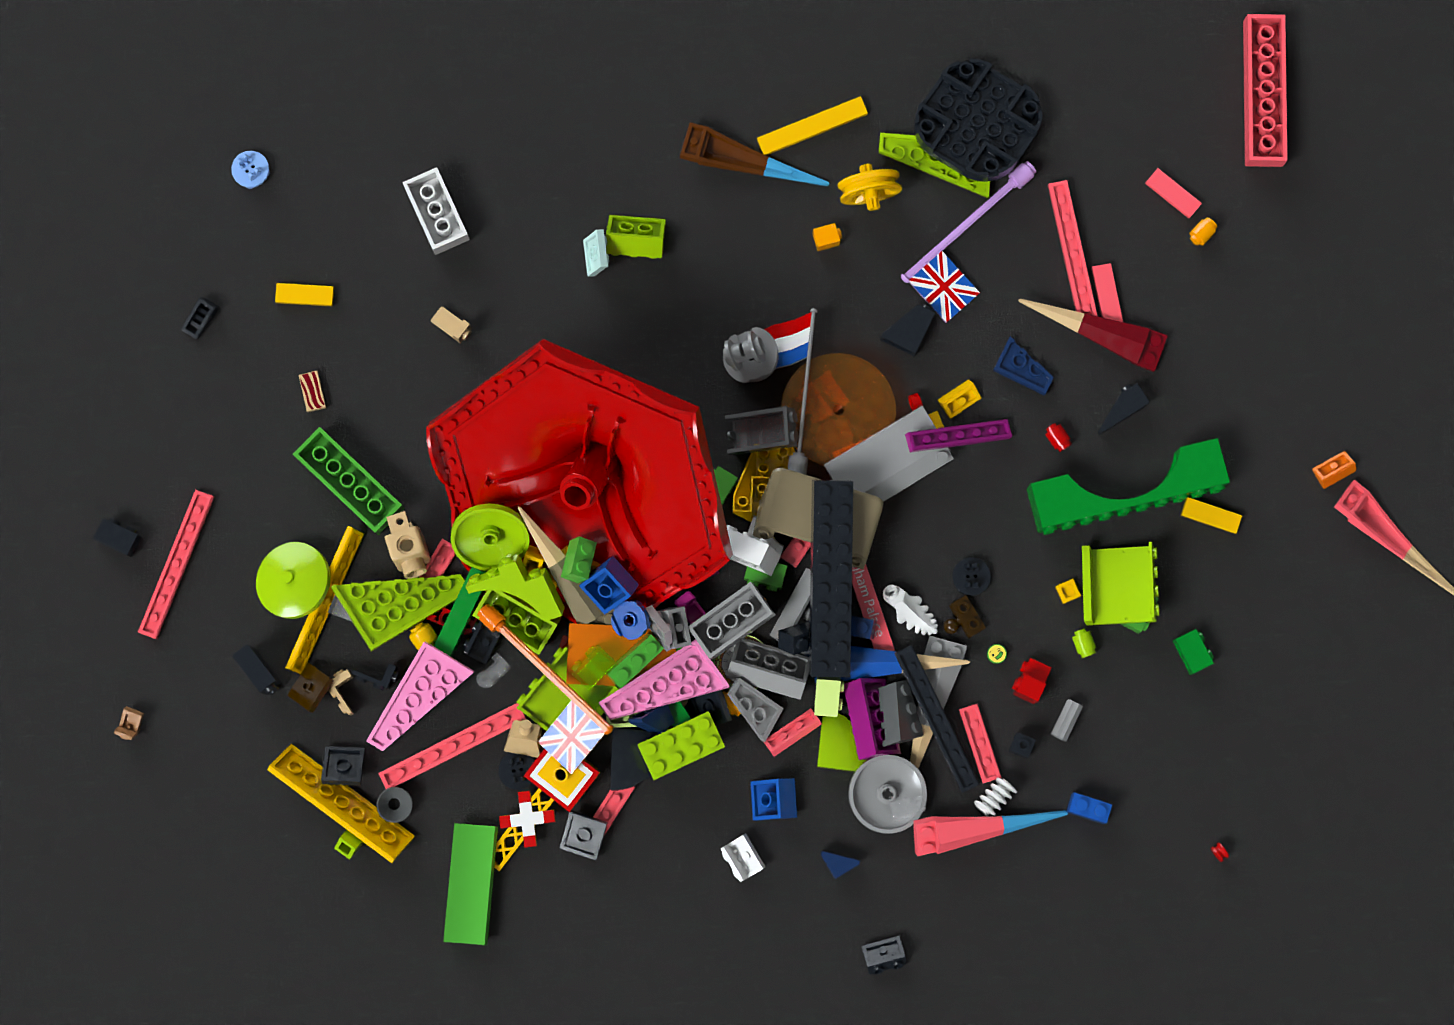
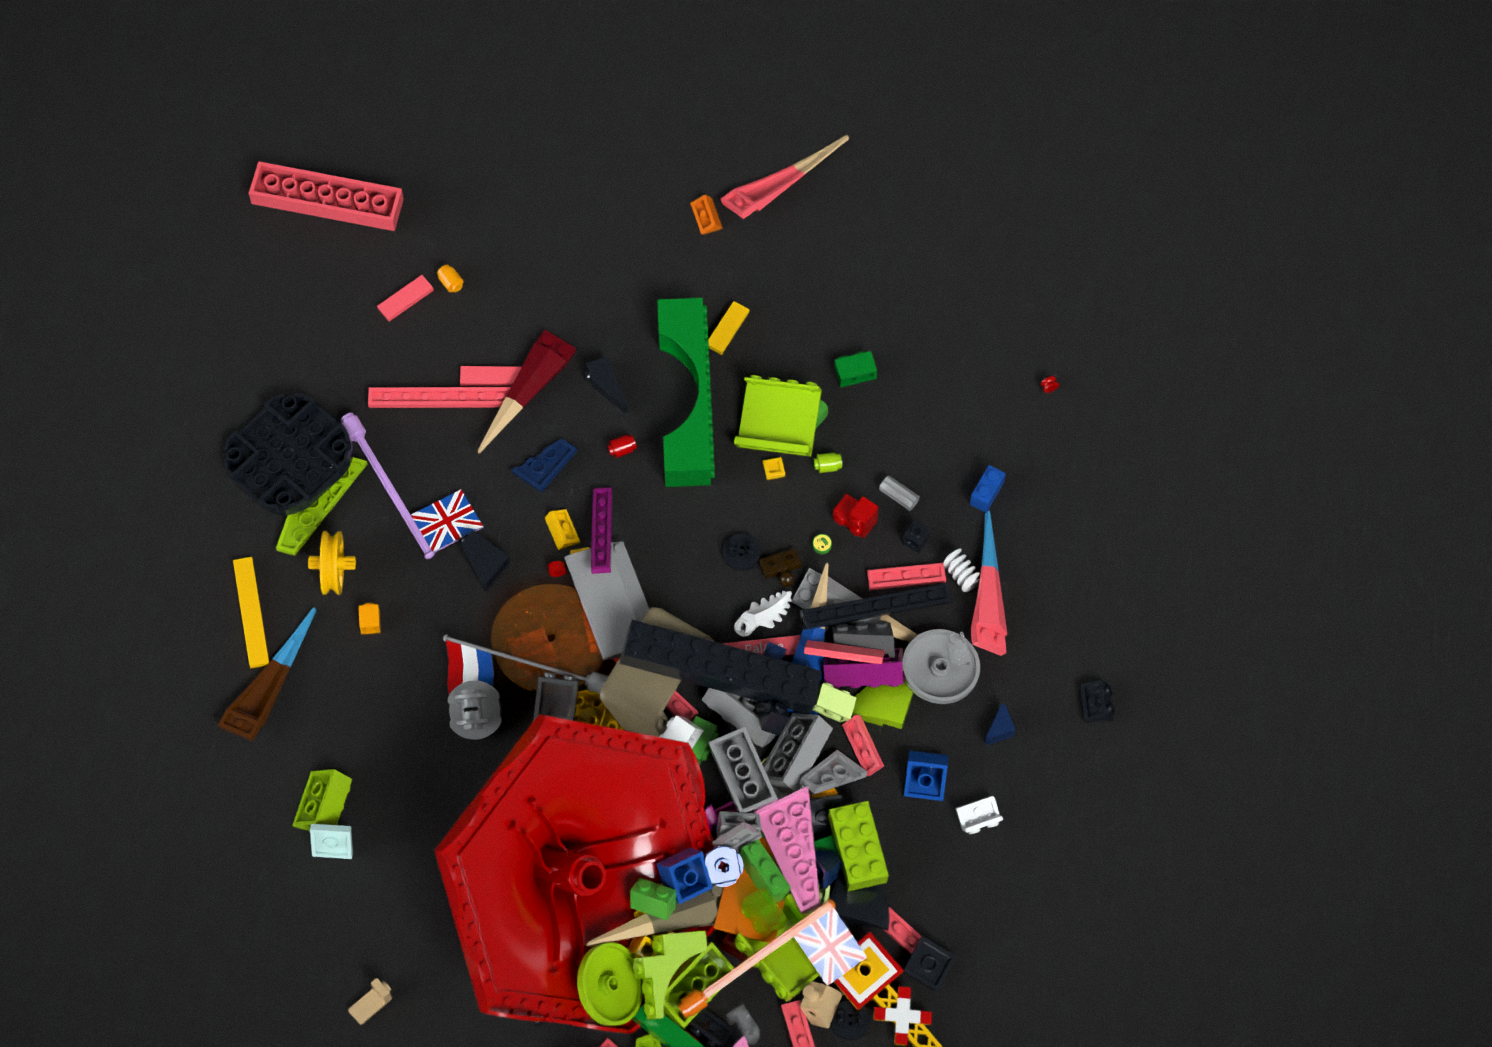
camera: 80 degrees left, 15 degrees down
(436, 211) = (245, 994): white brick -> none
(877, 696) = (844, 652): none -> coral tile

